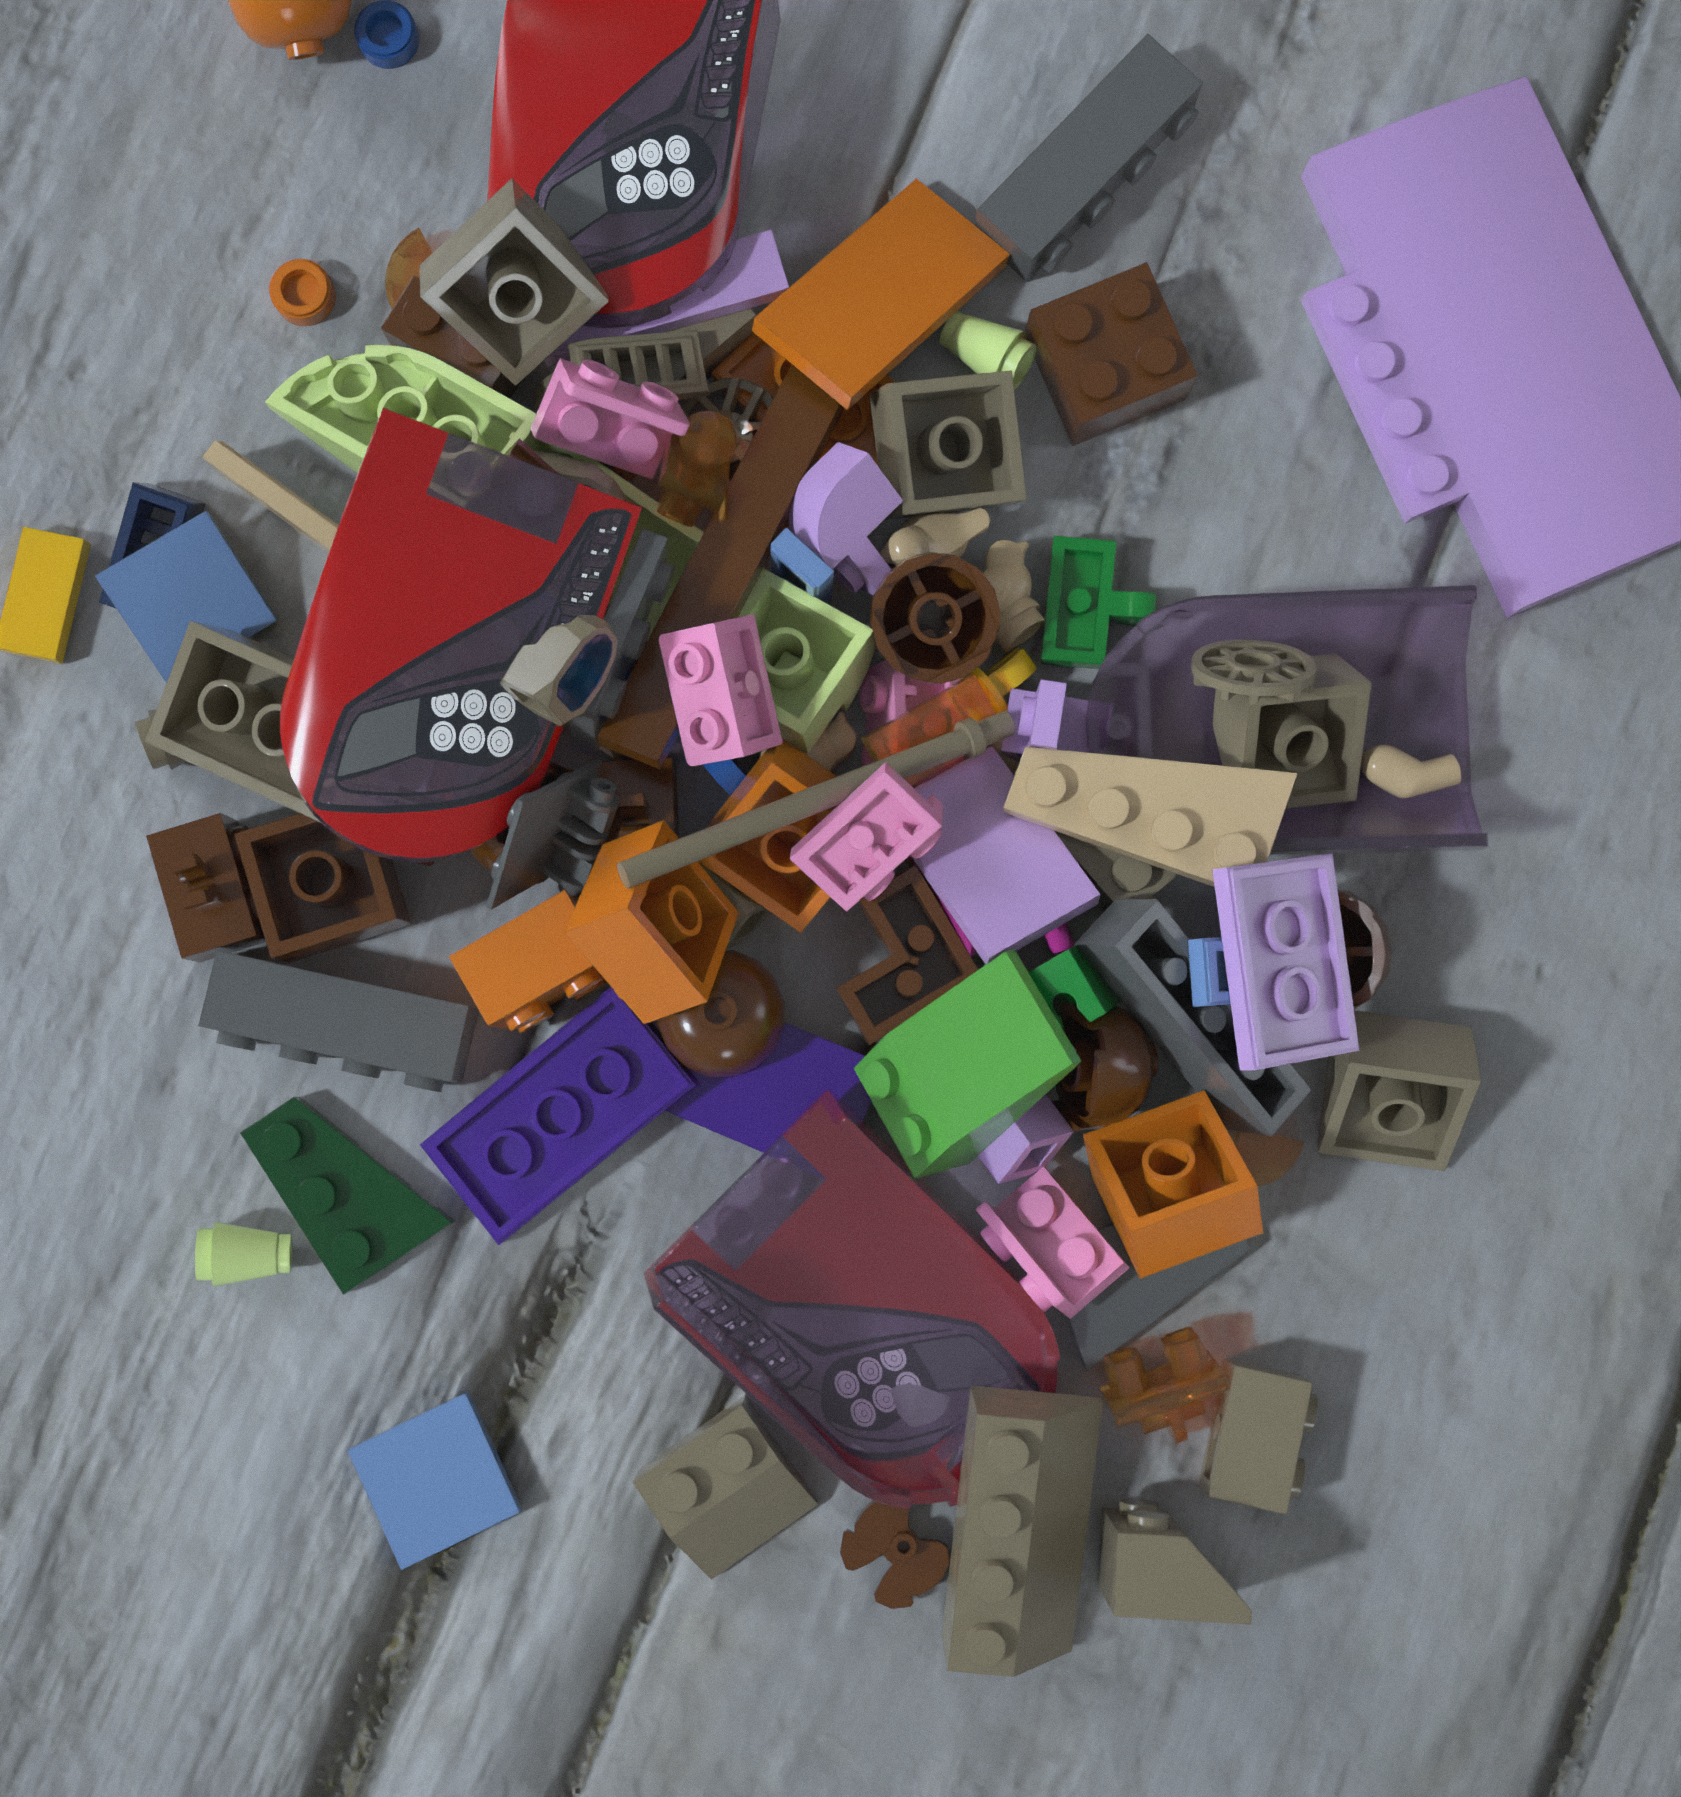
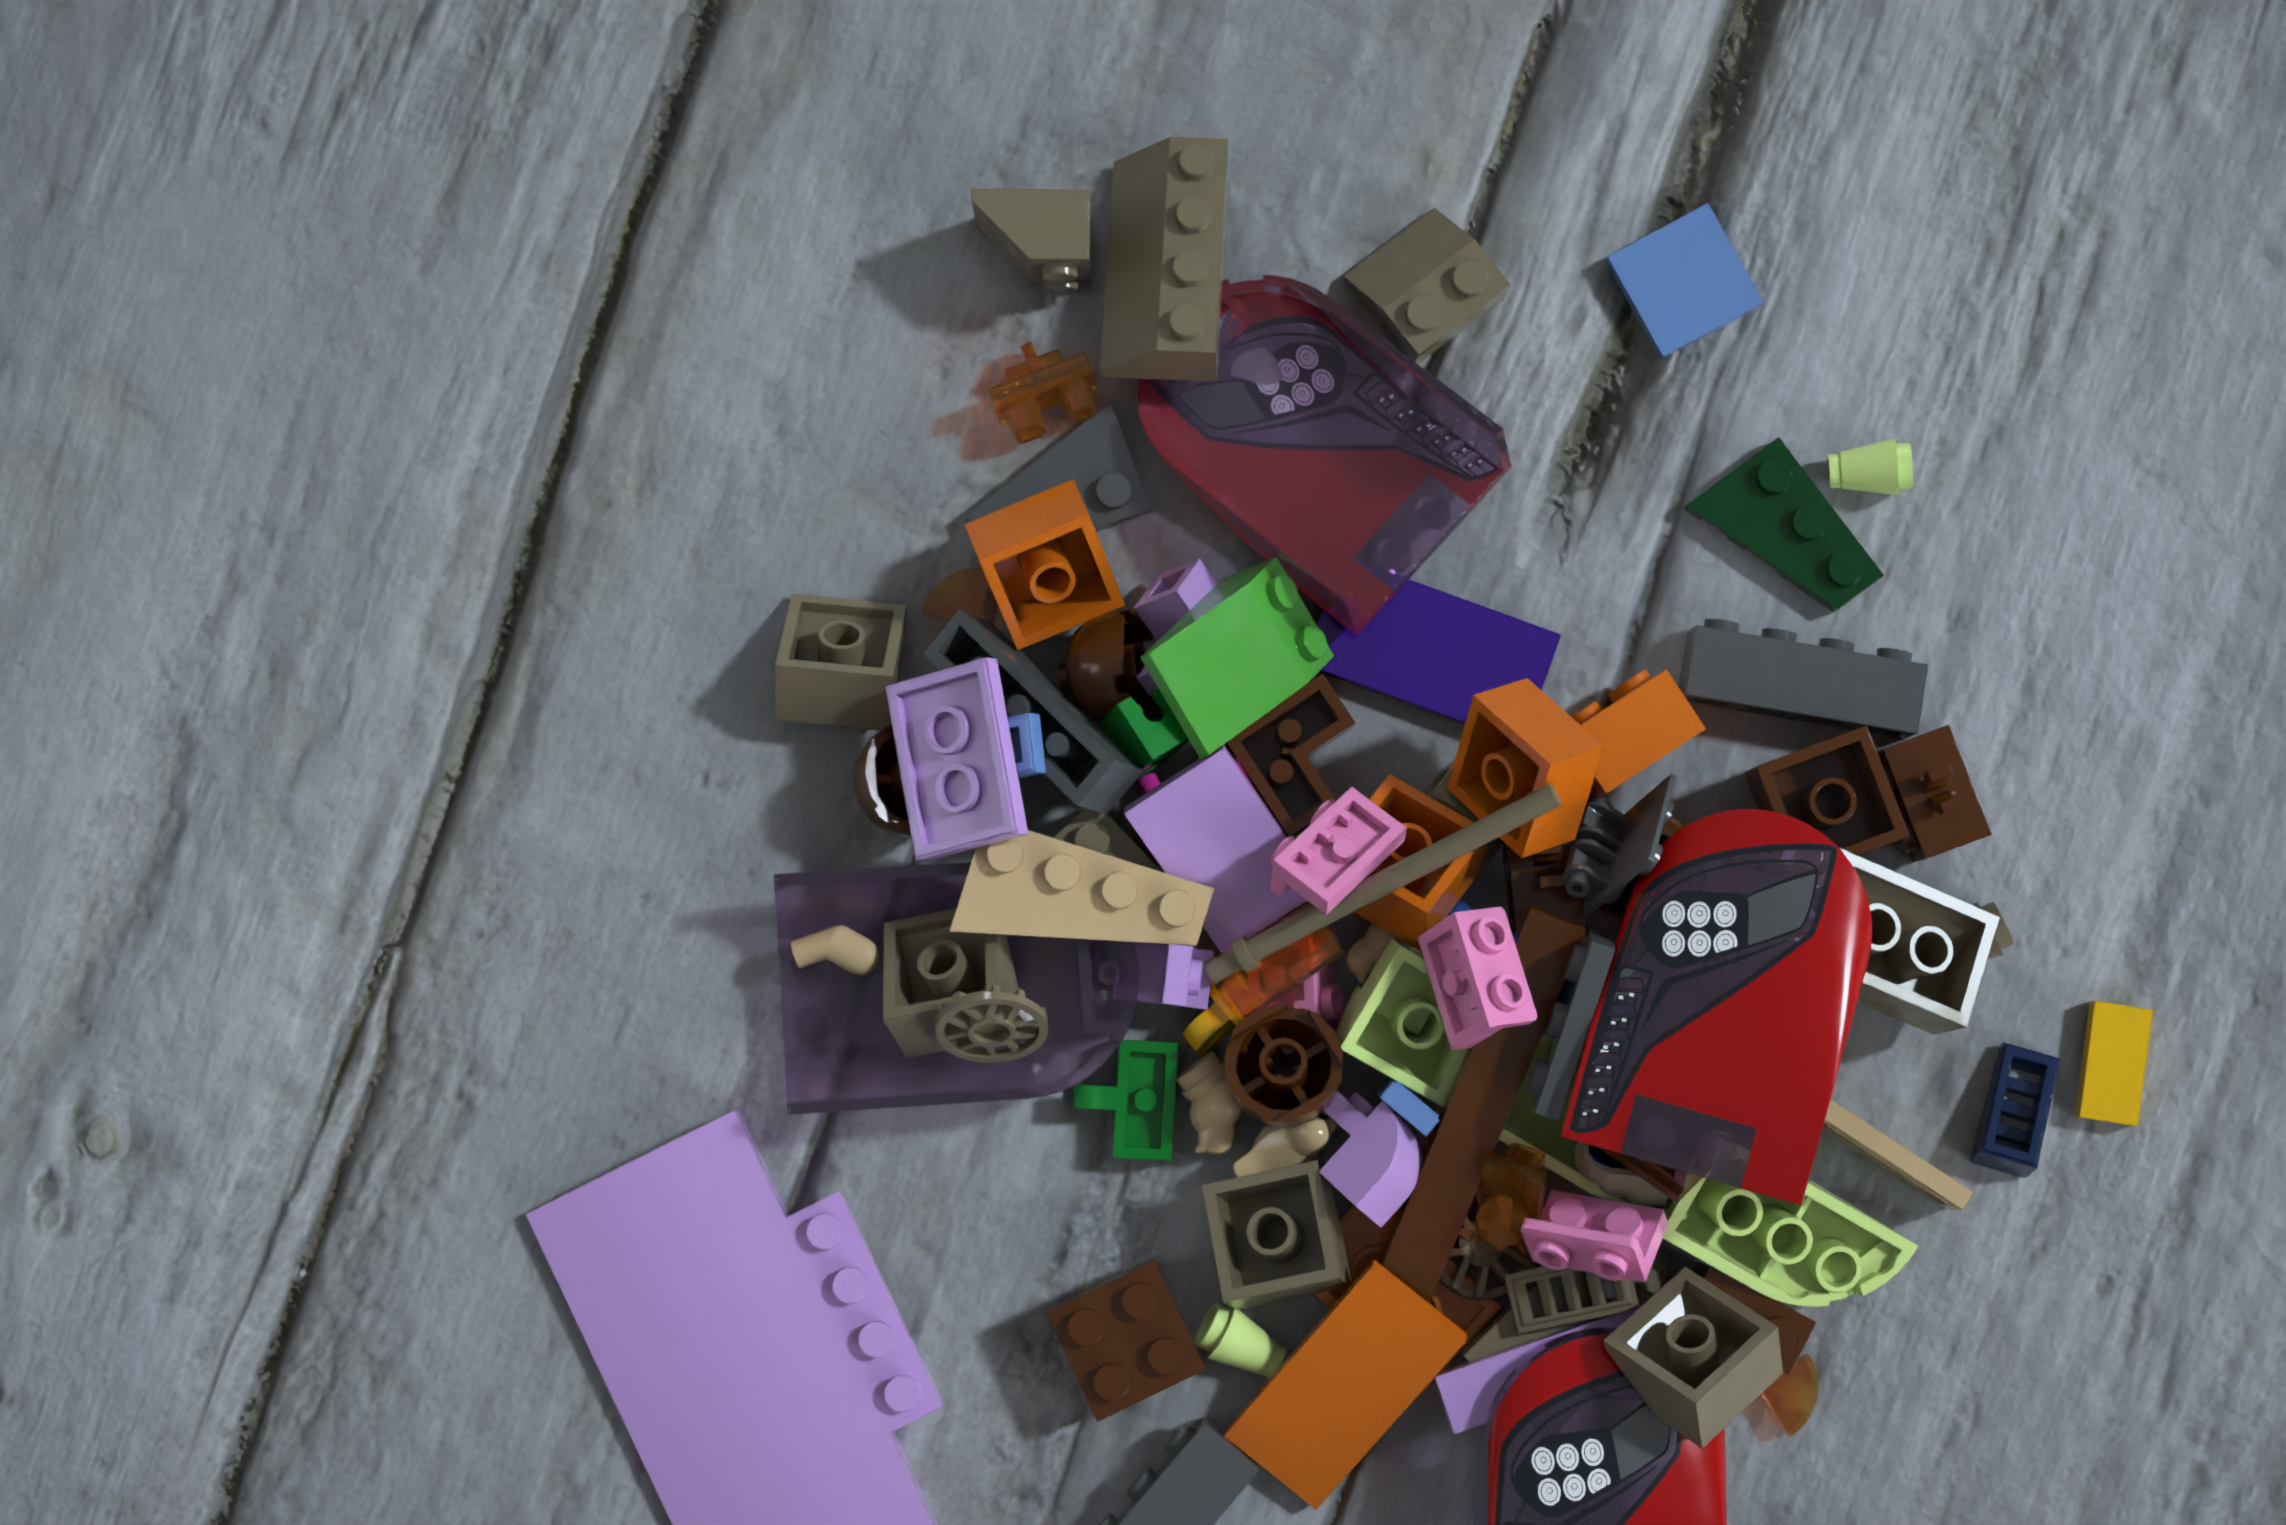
camera: 175 degrees right, 0 degrees up
(182, 580) = (1979, 1070): medium blue tile -> none
(302, 292) = (1896, 1370): orange tile -> none
(557, 1115) = (1598, 602): dark purple tile -> none
(563, 668) = (1620, 976): dark tan rock -> none
(734, 1026) = (1439, 693): reddish brown cylinder -> none
(915, 1561) = (1255, 231): reddish brown piece -> none
(1053, 1243) = (1149, 508): bright pink bracket -> none
(1258, 1437) = (958, 351): dark tan brick -> none

